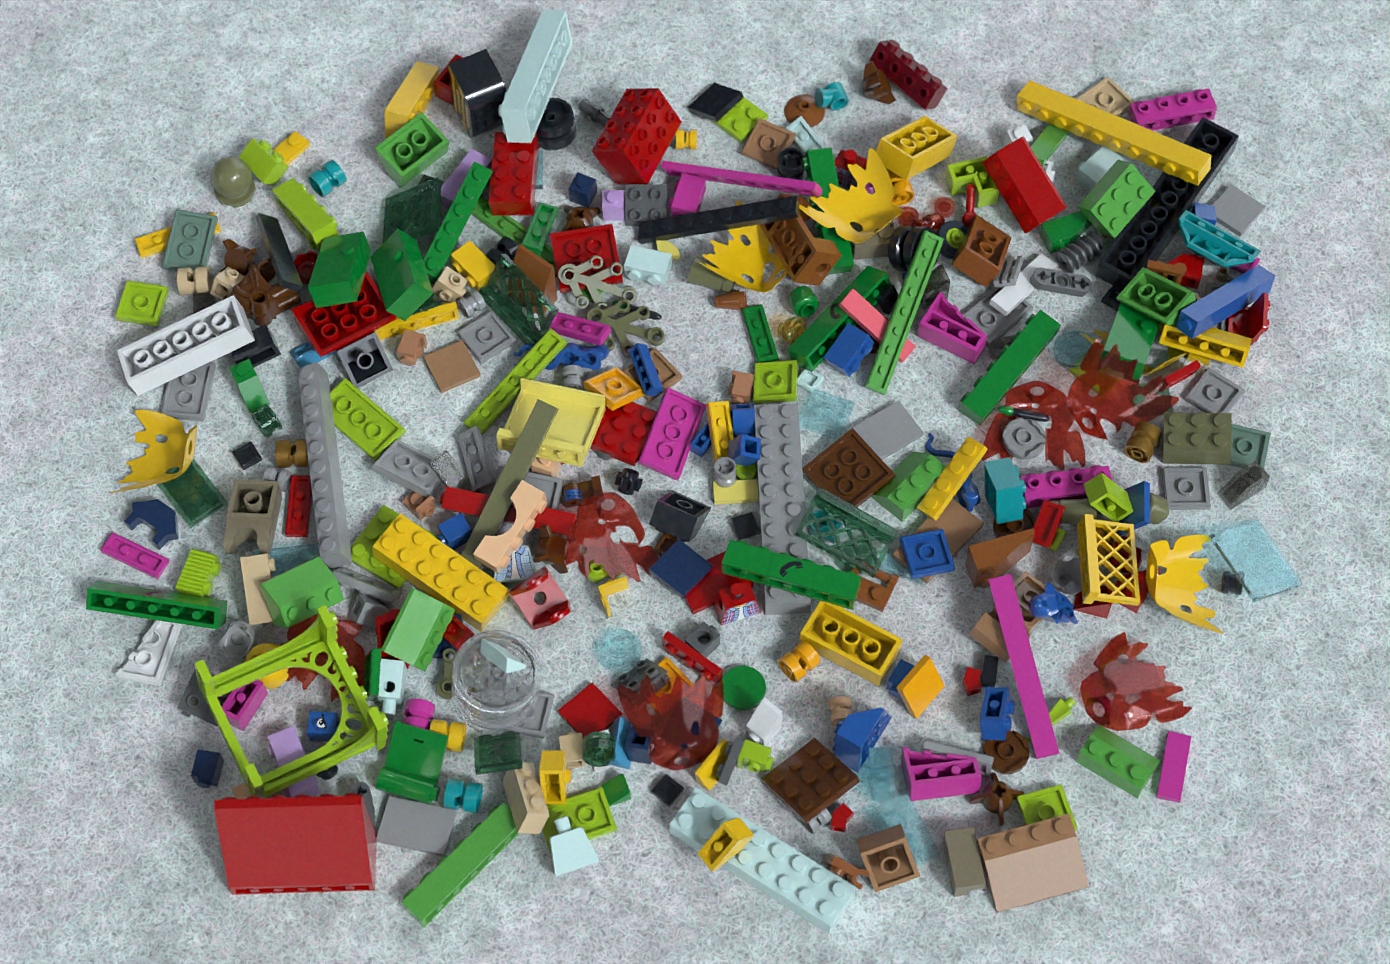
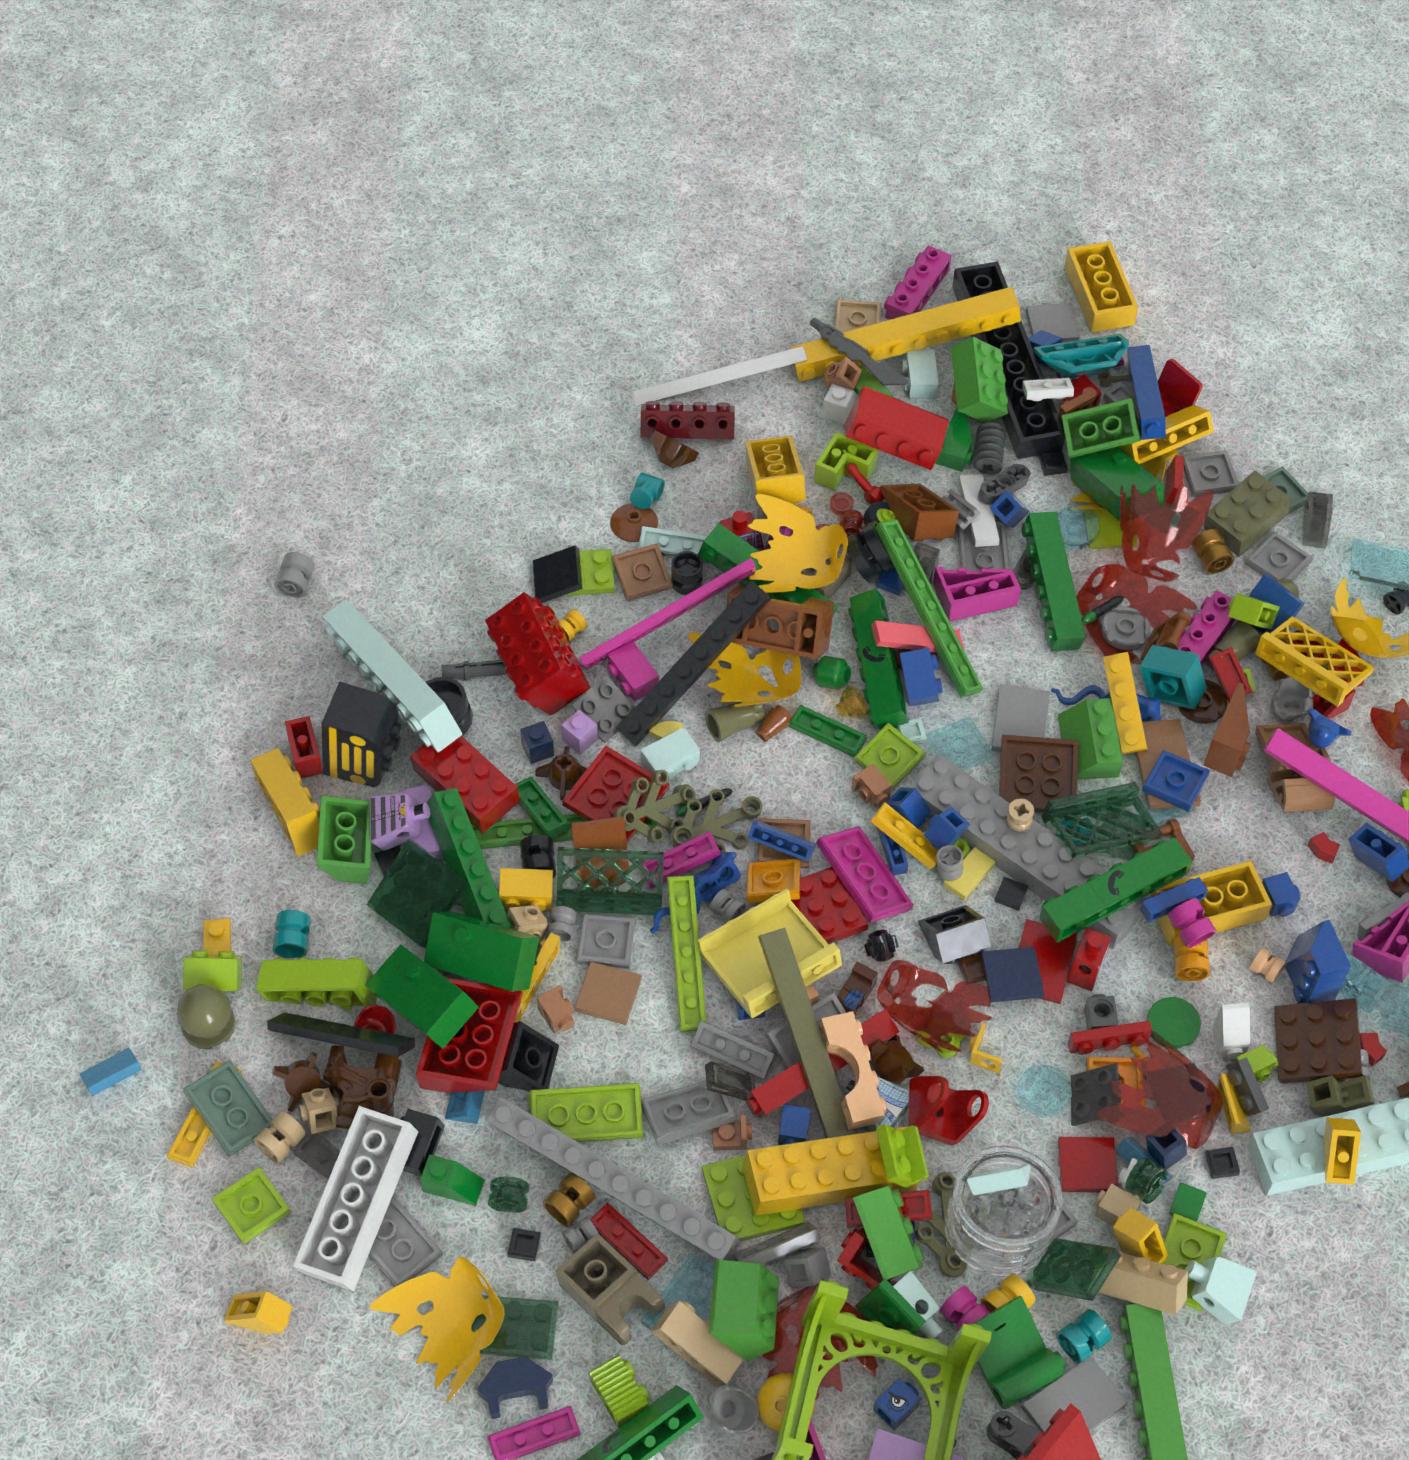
camera: 50 degrees left, 5 degrees down
(81, 362) = (259, 1312): none -> yellow slope
(159, 169) = (110, 1071): none -> dark azure slope
(446, 161) = (395, 819): none -> lavender torso
(475, 595) = (902, 1155): none -> lime bracket
(777, 821) = (1334, 1097): none -> olive brick
(791, 485) = (1023, 820): none -> tan wheel
(808, 638) = (1190, 920): none -> dark pink wheel
(820, 614) = (1166, 901): none -> blue piece
(888, 298) = (894, 610): black tile -> none
(920, 686) = (1303, 885): light orange tile -> none
(967, 63) = (719, 375): none -> white sticker
(989, 671) = (1323, 823): black piece -> none
(1038, 124) = (838, 372): none -> nougat brick
(1038, 464) = (1168, 632): none -> dark orange plate
(1042, 298) = (1009, 509): none -> blue brick
(1061, 116) = (881, 371): none -> dark grey sword
(1156, 243) = (1048, 388): none -> white plate
(1296, 211) = (1101, 286): none -> yellow brick

